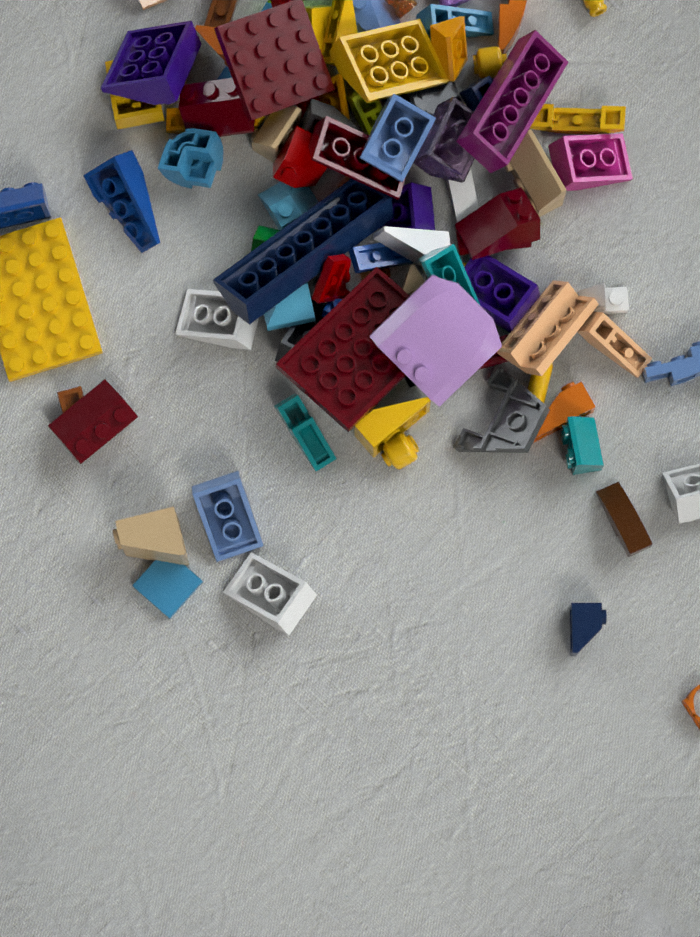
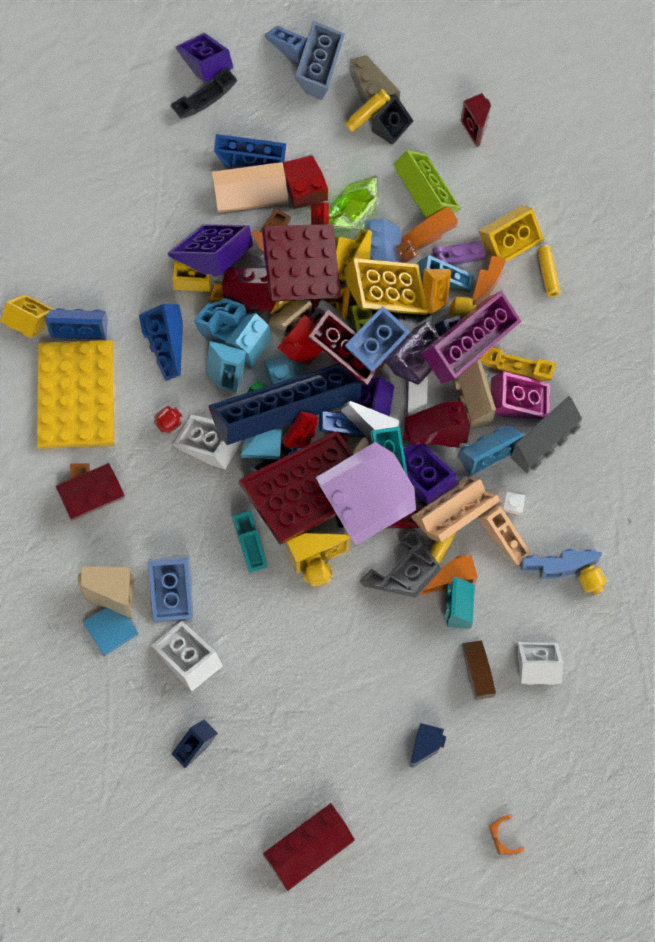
camera: 10 degrees right, 10 degrees down
(161, 304) = (168, 419): none -> red head
(214, 217) = (225, 366): none -> medium azure slope
(233, 172) = (252, 336): none -> medium azure slope
(309, 696) = (194, 743): none -> dark blue slope
(478, 782) = (308, 847): none -> dark red slope
(570, 238) = (489, 449): none -> dark azure slope
(636, 204) = (547, 435): none -> dark grey slope

